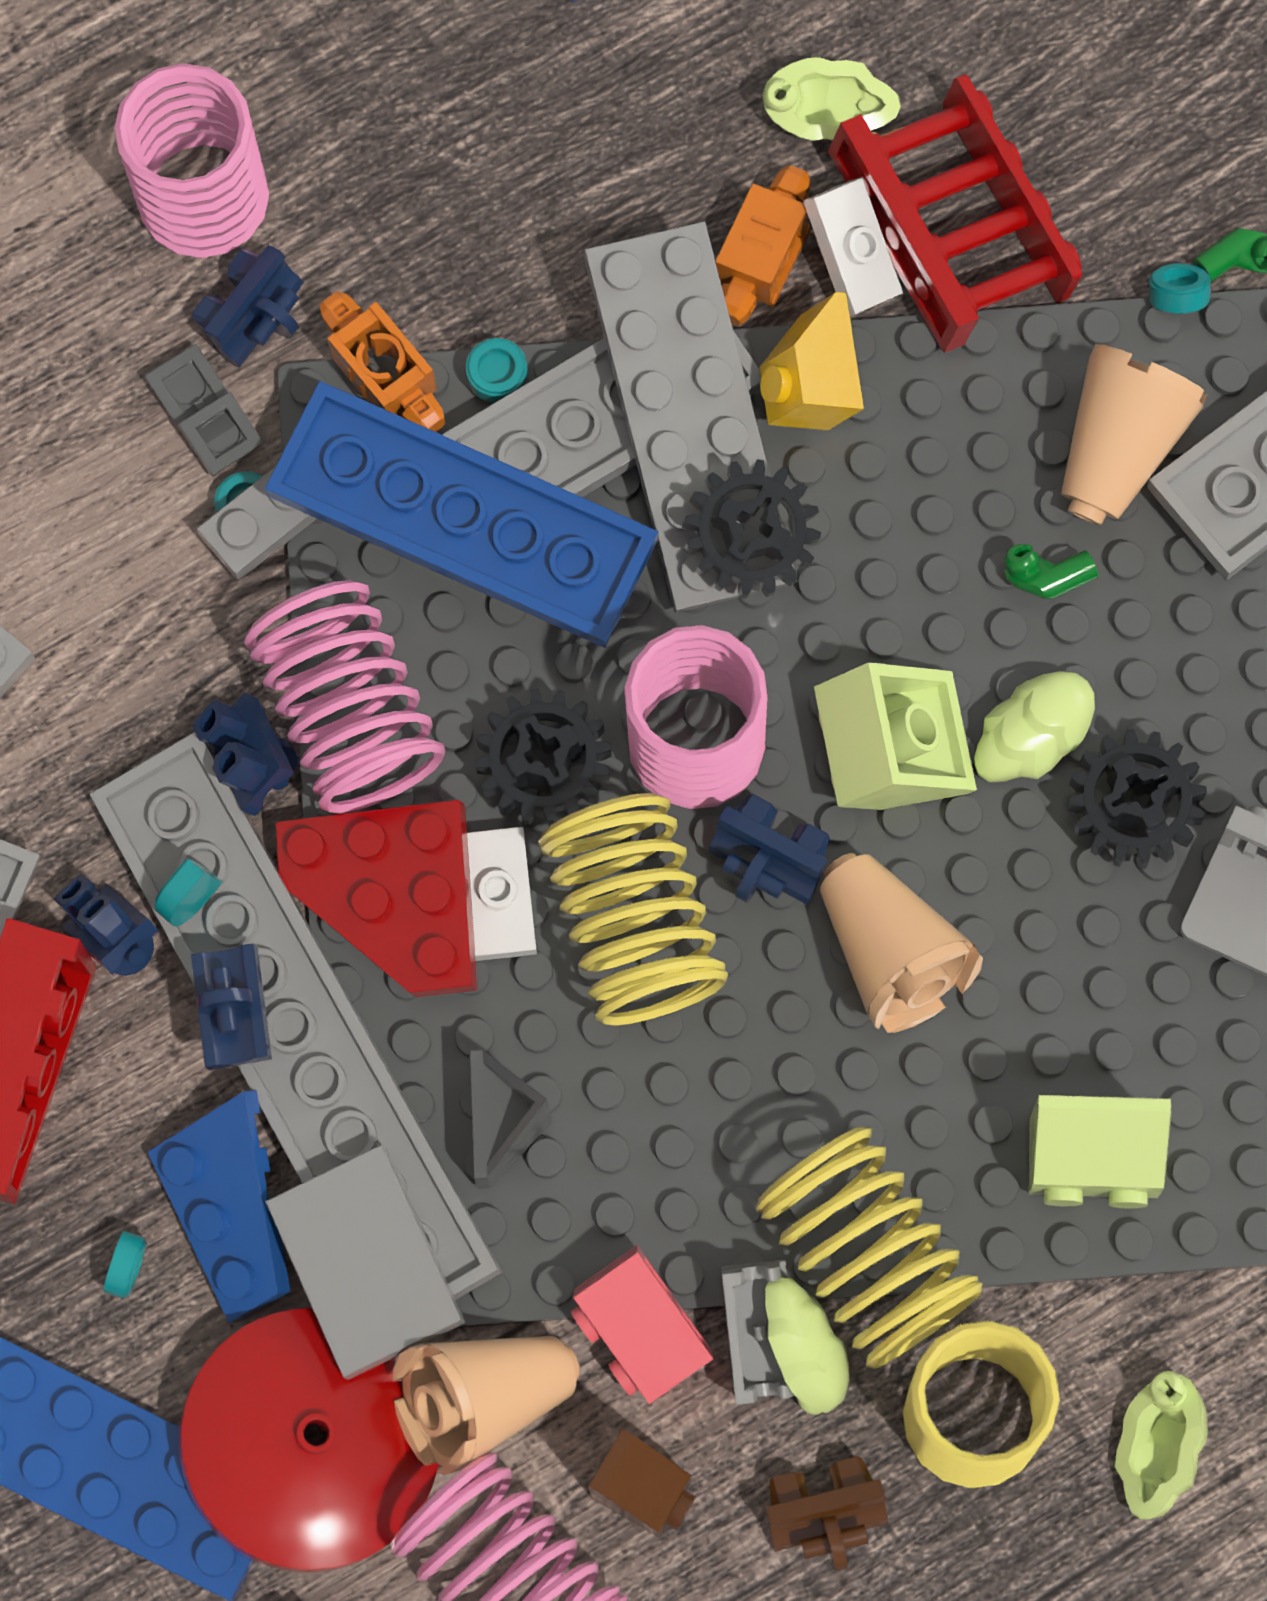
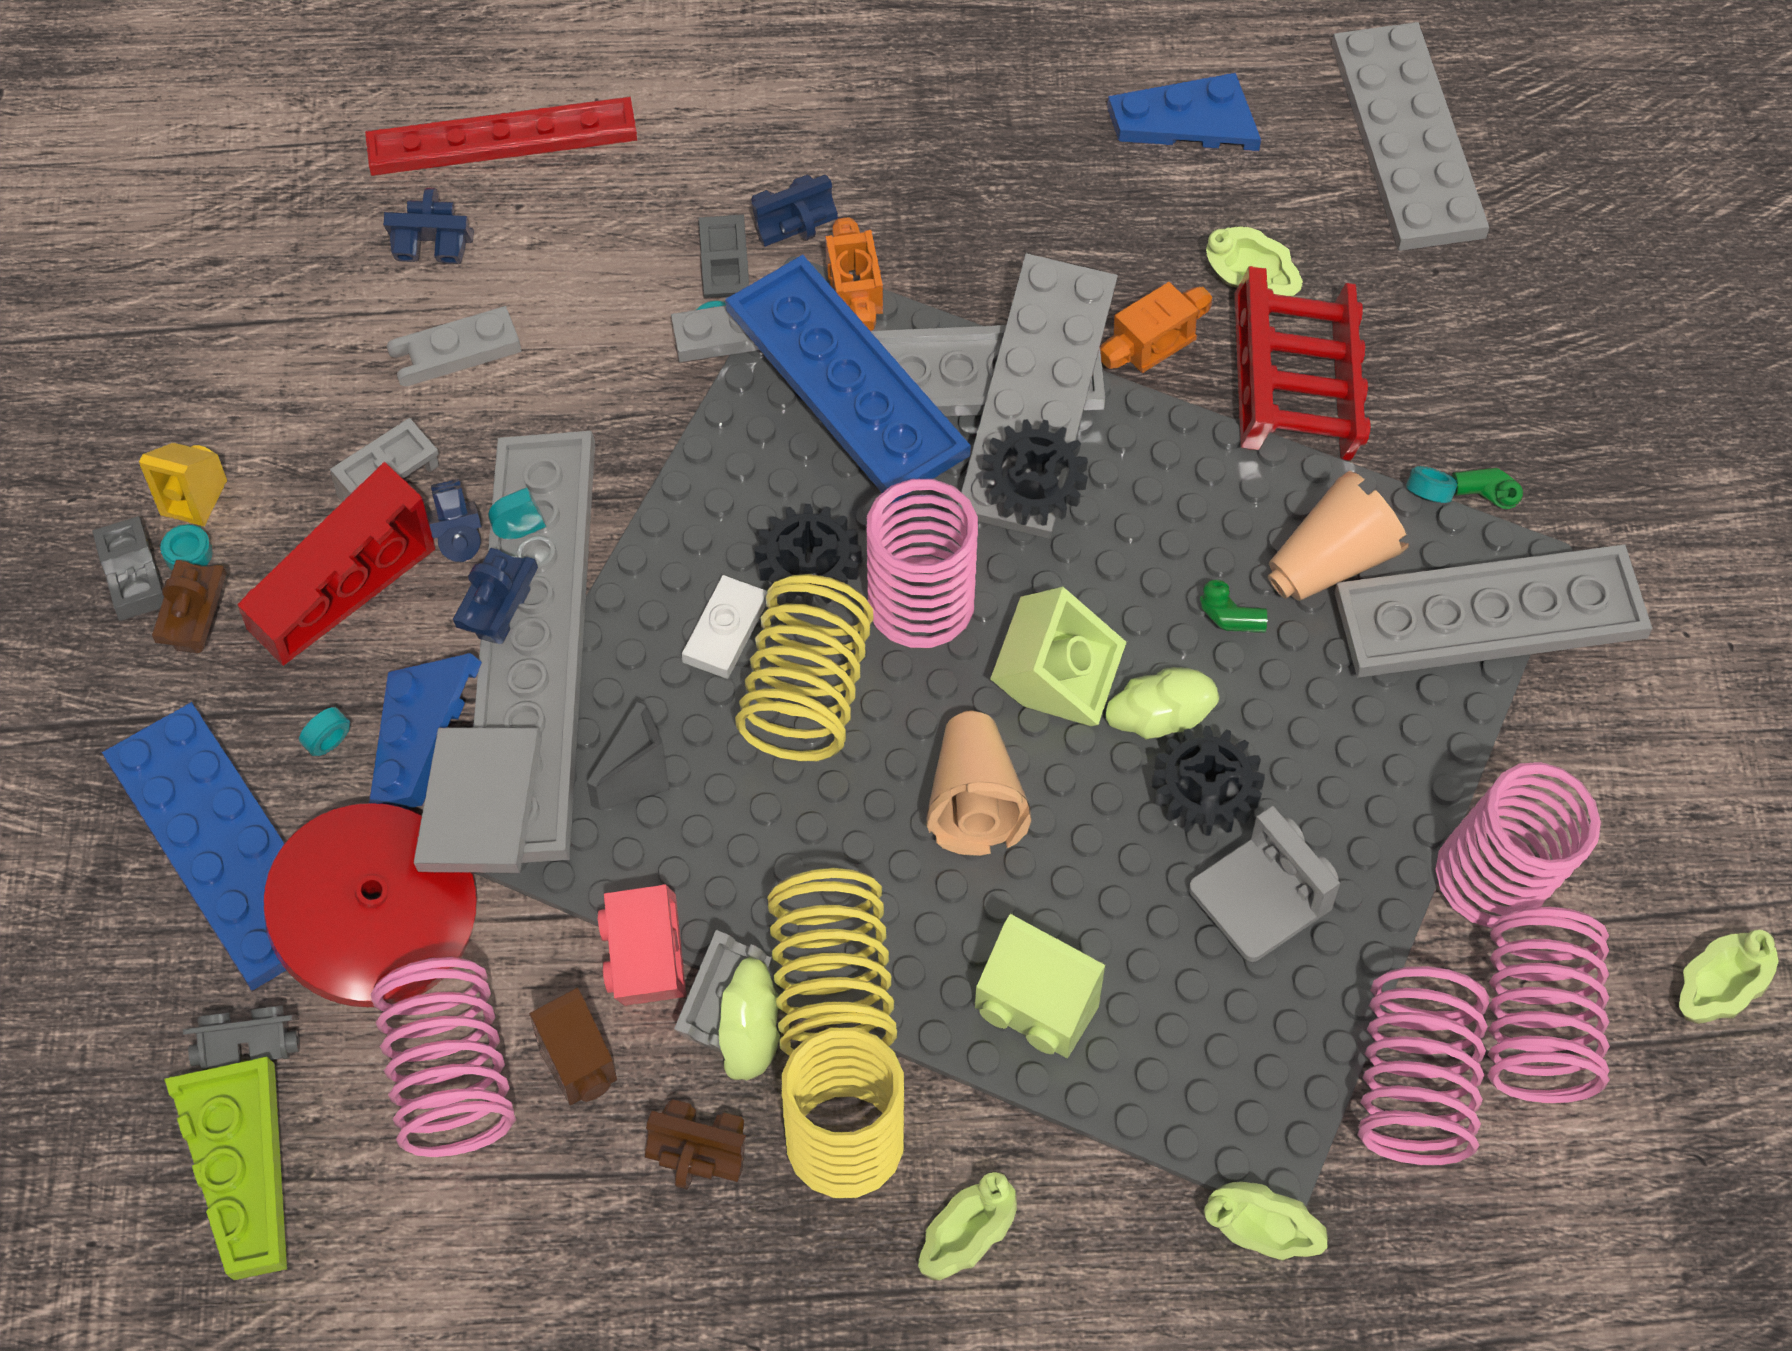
camera: 25 degrees right, 15 degrees down
(224, 121) = (842, 113): bright pink piece -> none
(246, 750) = (615, 458): dark blue hips -> none
(362, 761) = (678, 475): bright pink piece -> none
(391, 888) = (655, 585): red plate -> none
(478, 1394) = (505, 927): light nougat cone -> none
(496, 369) = (929, 312): teal tile -> none
(766, 857) = (919, 687): dark blue hips -> none
(813, 370) = (1139, 408): yellow slope -> none
(853, 245) = (1215, 352): white plate -> none

